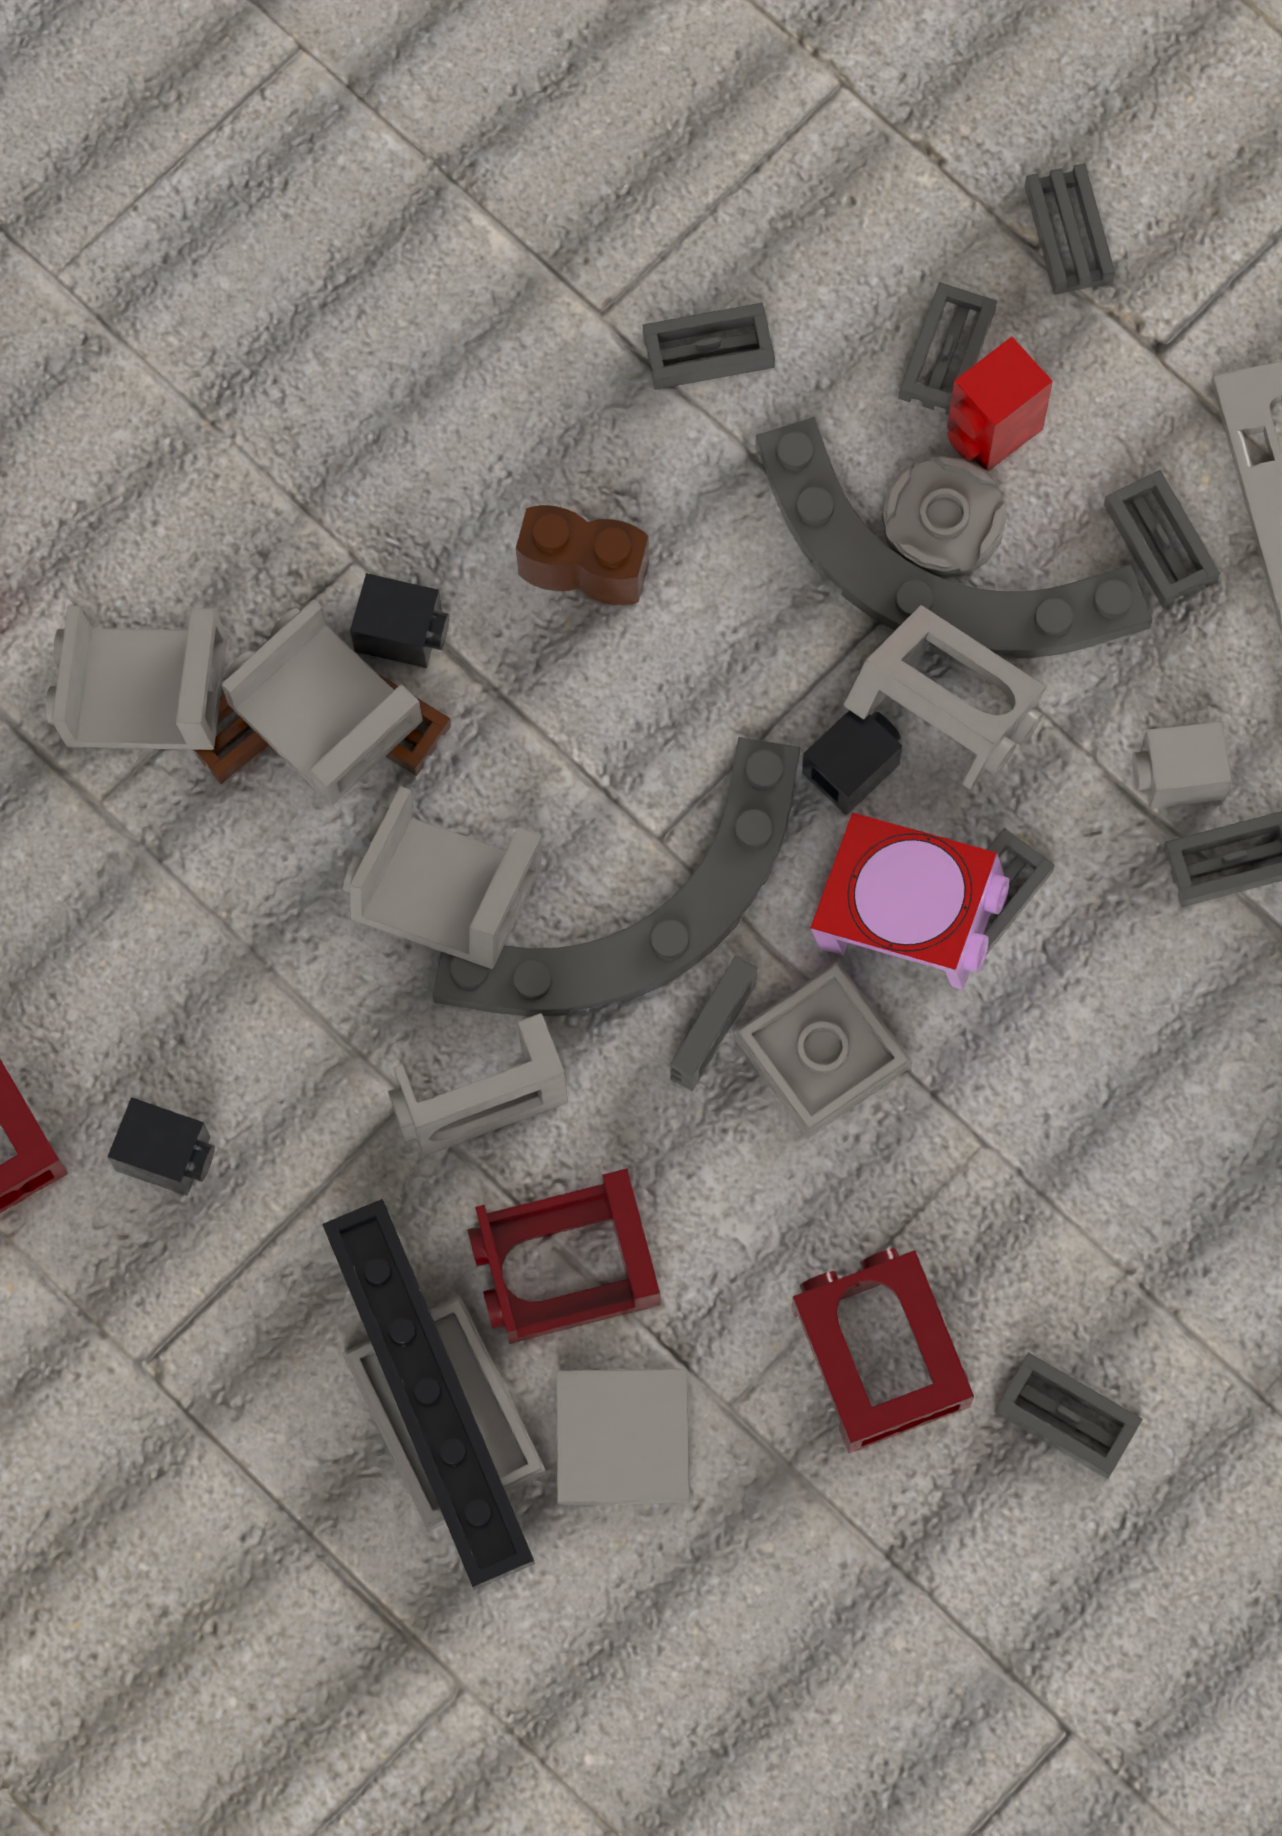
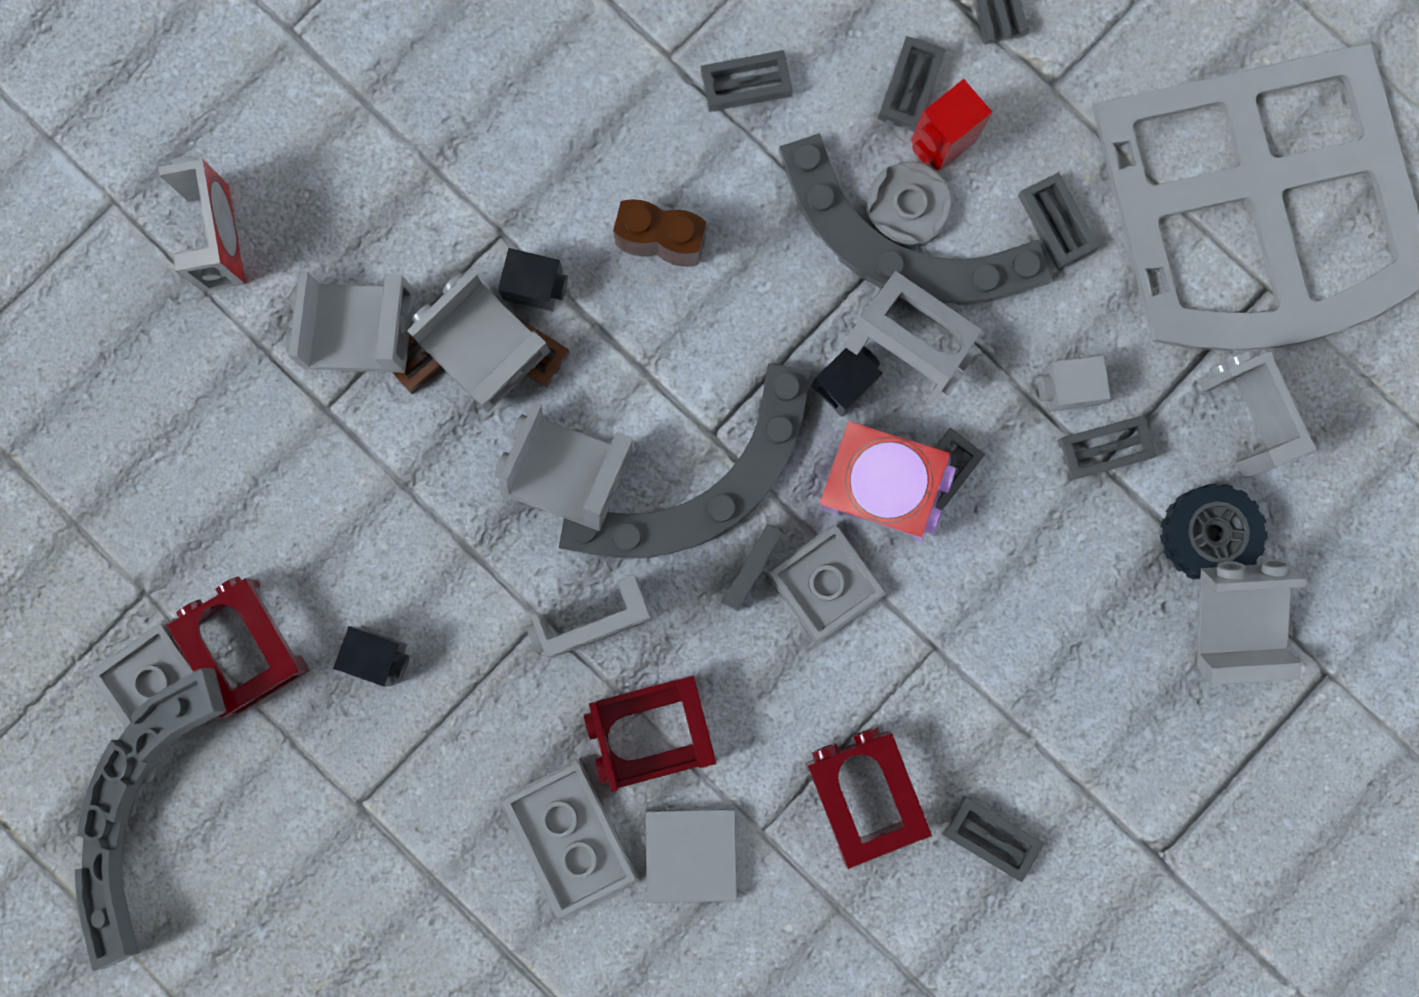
camera: 10 degrees left, 10 degrees up
(428, 1394) = (557, 834): black plate -> none

